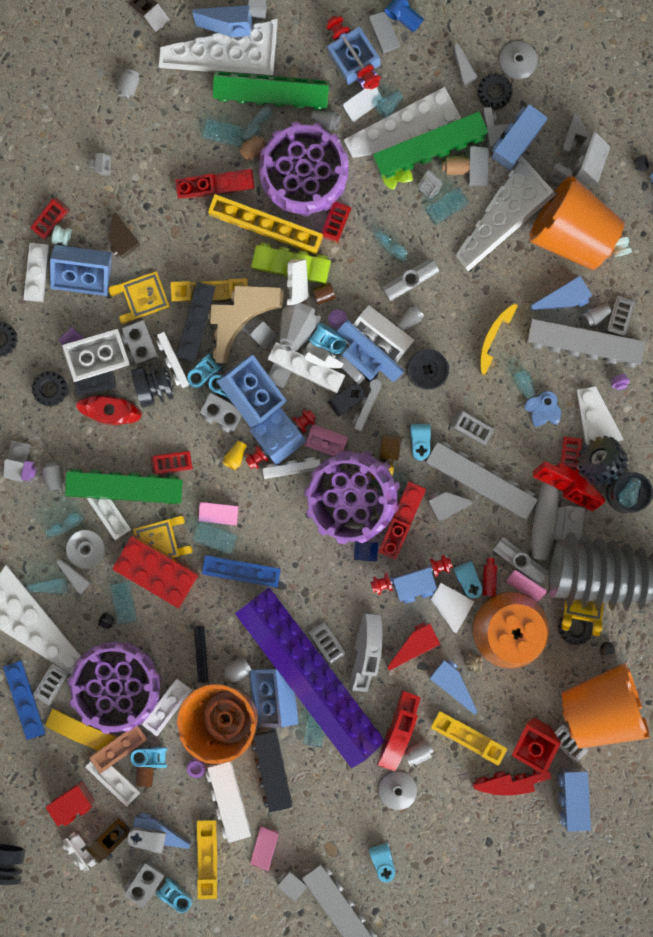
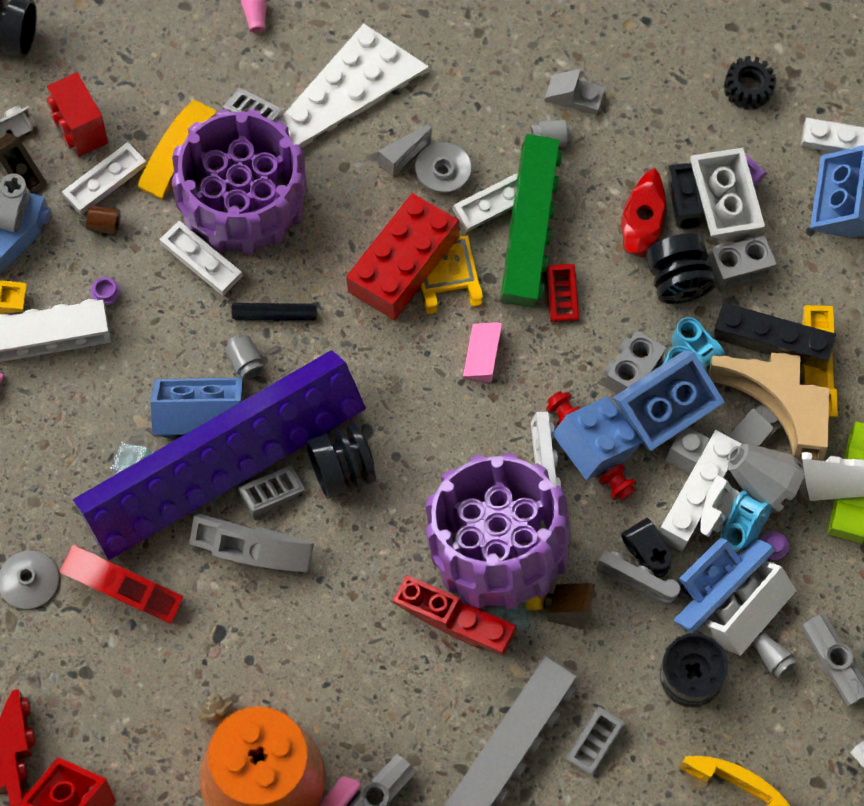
camera: 90 degrees right, 20 degrees down
(24, 700) = (232, 76): blue plate -> none
(29, 471) = (560, 103): medium lavender plate -> none
(49, 400) = (676, 126): black tyre -> none
(53, 586) = (393, 122): clear light blue slope -> none
(70, 523) = (479, 147): clear light blue slope -> none
(106, 620) = (337, 187): black hinge -> none
(117, 749) = (148, 184): nougat plate -> none
(123, 603) = (361, 215): clear light blue slope -> none
(143, 296) = (809, 275): yellow flag -> none
(151, 757) = (129, 232): medium azure piece -> none
(171, 360) = (711, 304): white plate -> none
(204, 725) = (170, 305): orange cone -> none
(214, 538) = (445, 341): clear light blue slope -> none
(234, 456) = (568, 379): yellow cone -> none
(241, 571) = (392, 376): blue plate -> none
(272, 770) = (85, 394): black brick -> none
(308, 600) = (341, 460): none -> black wheel
(324, 293) = (813, 527): reddish brown gear -> none
(325, 440) = (586, 513): bright pink slope -> none
(350, 370) = (692, 555): light grey beam -> none
(366, 551) = (408, 561): clear blue slope -> none
(413, 583) = (352, 622): medium blue brick -> none
(417, 643) = (257, 623): red slope -> none
(418, 753) = (82, 612): light grey brick -> none
(420, 438) = (583, 655): medium azure piece -> none
(447, 504) = (473, 687): light grey slope -> none
(451, 605) = (311, 684): white slope -> none
(451, 681) = (188, 673): medium blue slope -> none
(467, 576) = (355, 712): medium azure piece -> none
(469, 738) = (97, 694): yellow slope -> none
(489, 578) = (350, 748): red cylinder -> none

